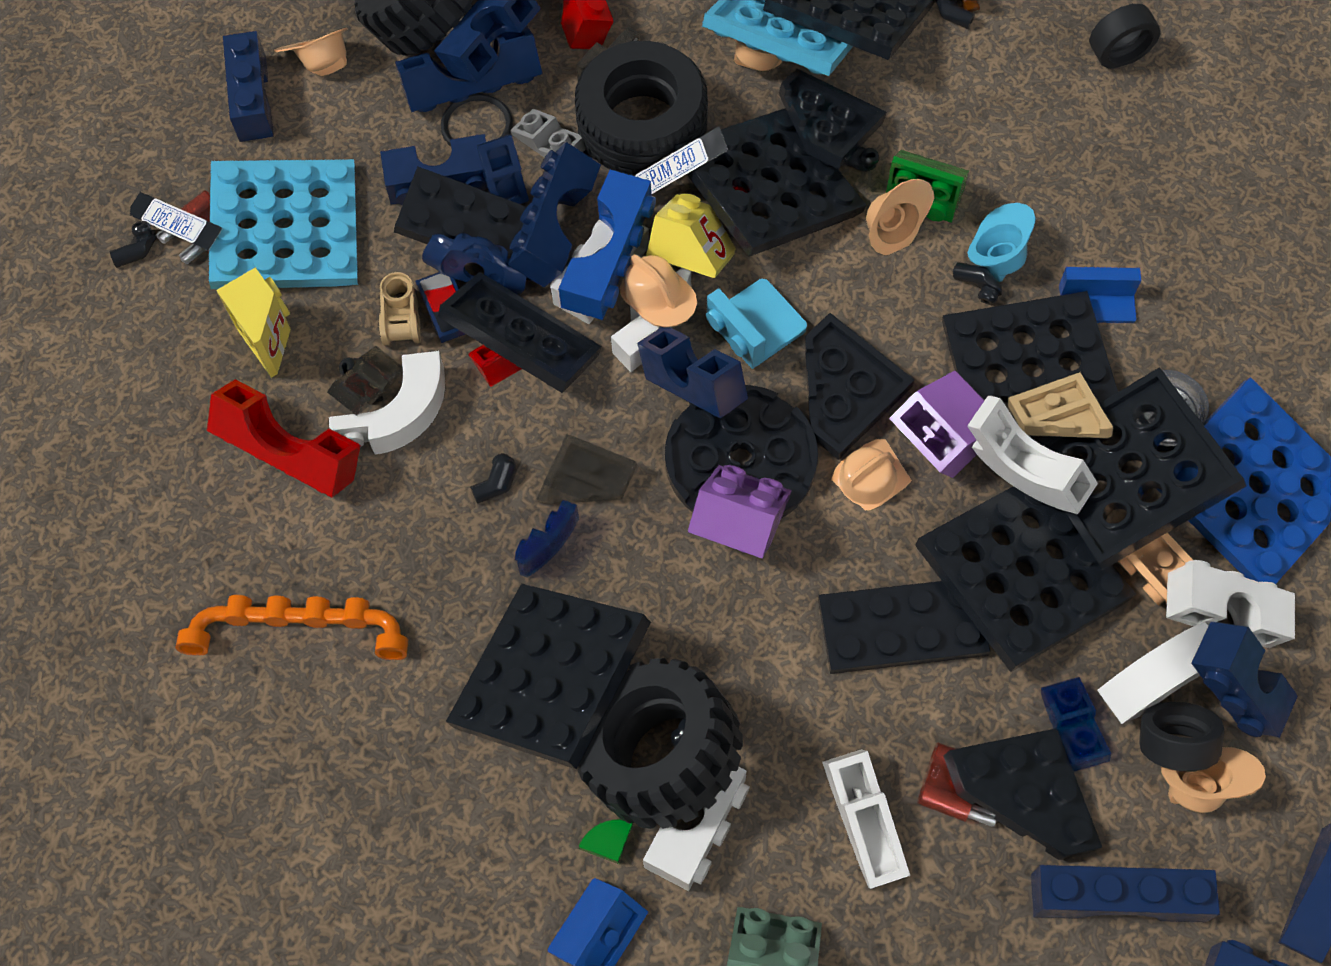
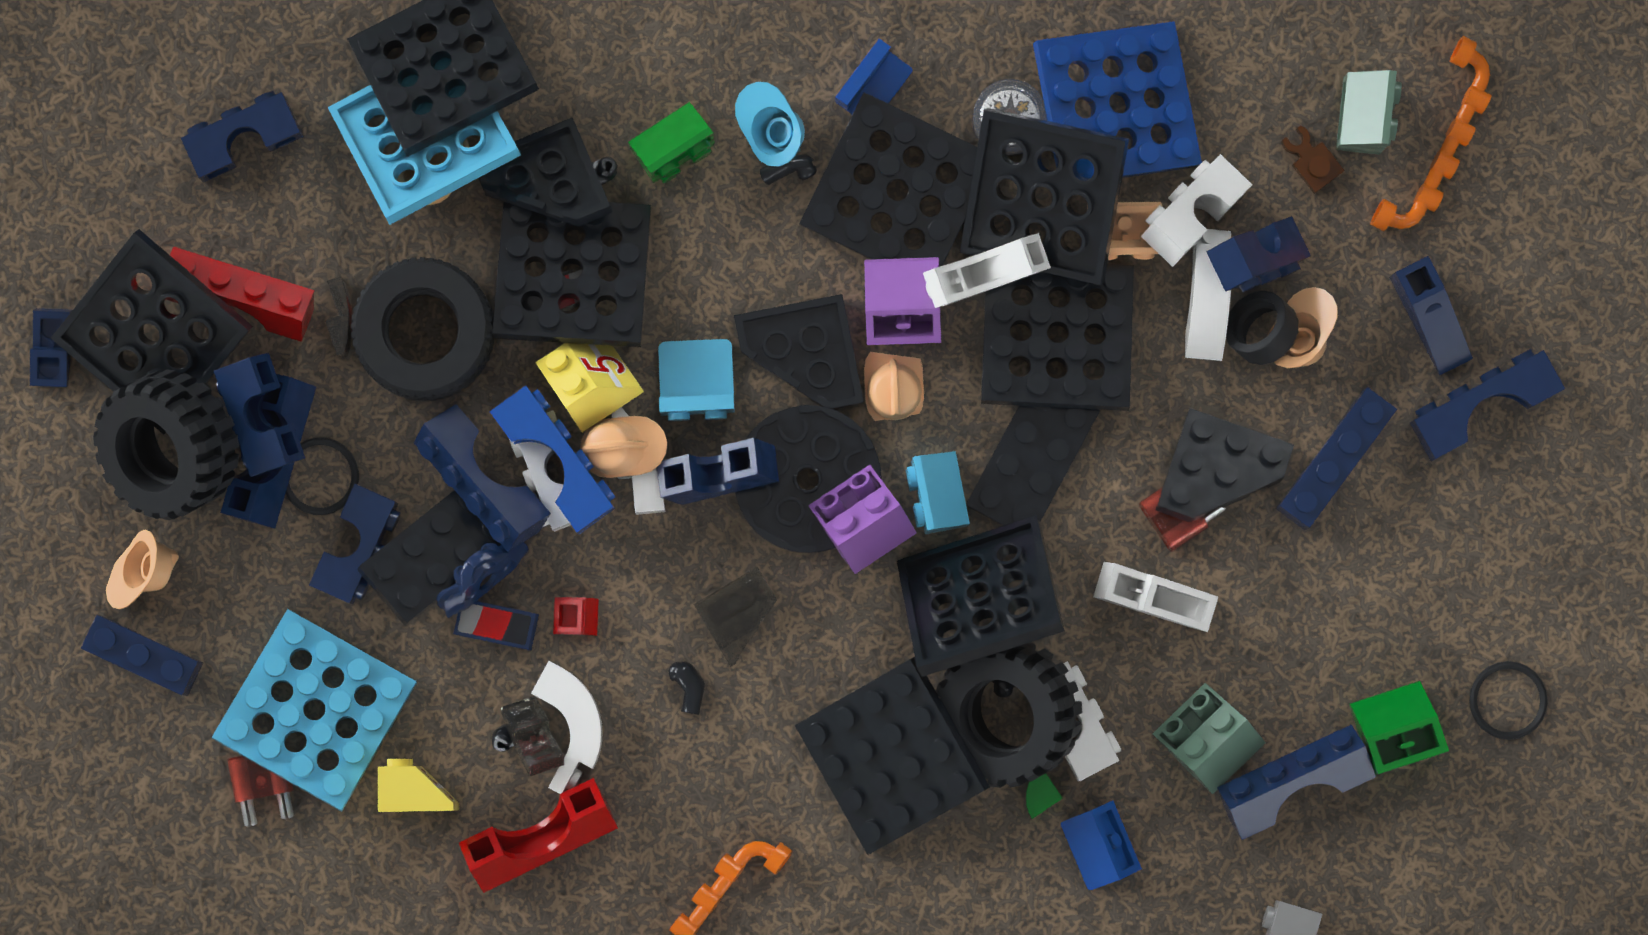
camera: 60 degrees left, 20 degrees up
(138, 248) = (245, 847): black arm -> none
(175, 221) = (247, 803): sticker -> none
(400, 315) = (480, 668): tan piece -> none
(502, 169) = (409, 494): dark blue slope -> none
(519, 331) = (575, 582): black plate -> none
(542, 546) = (777, 694): clear blue slope -> none
(544, 133) = (383, 424): light grey slope -> none
(685, 160) = (509, 349): sticker -> none
(745, 645) = (964, 614): none -> black piece
(810, 557) = (938, 492): none -> medium azure slope
(898, 214) = (686, 196): light nougat piece -> none
(1061, 409) = (957, 208): tan wing -> none
(1074, 716) = (1195, 390): clear blue slope -> none

